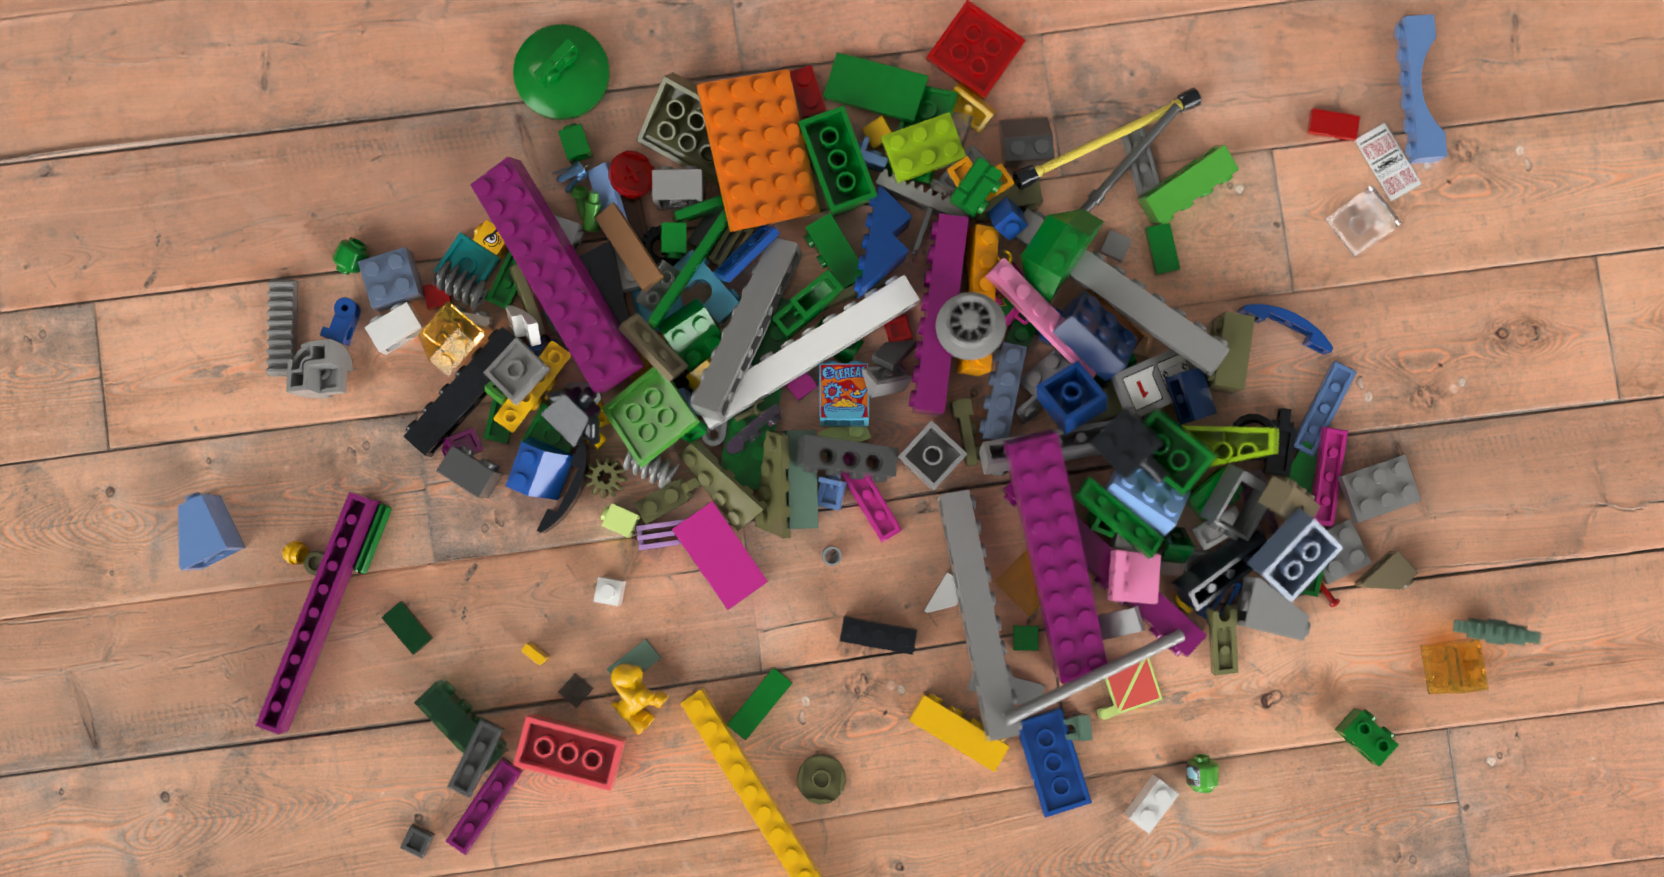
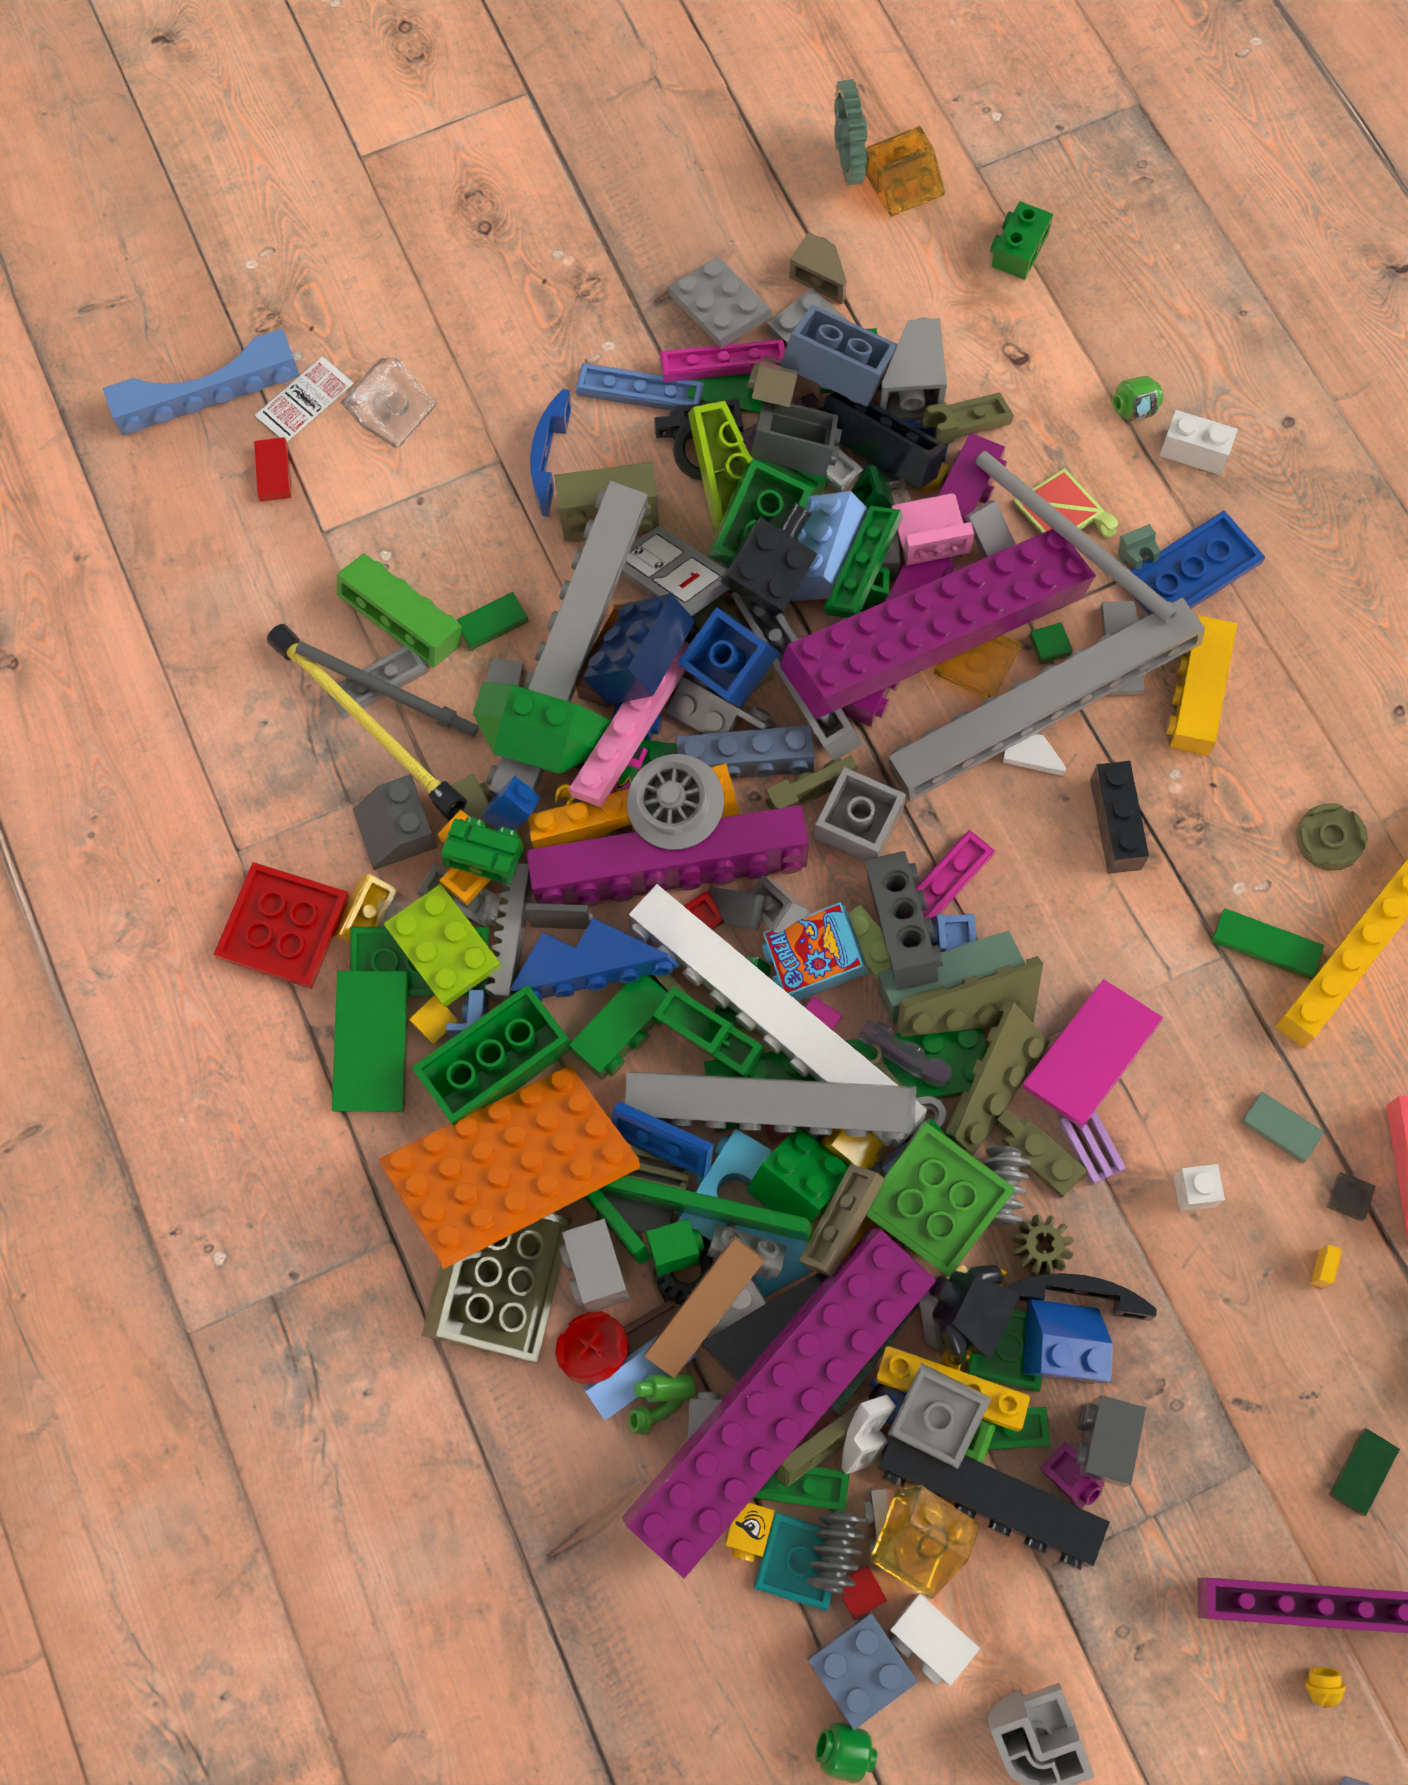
camera: 100 degrees left, 15 degrees down
(313, 561) = (1325, 1647): olive tile -> none
(344, 321) = (936, 1728): blue leg -> none
(372, 538) = (1257, 1570): green axle -> none
(561, 72) = (464, 1509): green bracket -> none
(574, 170) = (616, 1437): flat silver piece -> none
(575, 143) = (567, 1450): green brick -> none
(620, 520) = (1094, 1205): yellowish green brick -> none
(635, 696) = (1329, 1105): yellow animal -> none
(807, 92) = (398, 1132): red plate -> none
(834, 559) = (1036, 908): light grey hinge -> none
(1190, 396) = (678, 526): dark blue brick -> none
(1333, 602) = (873, 316): red piece -> none

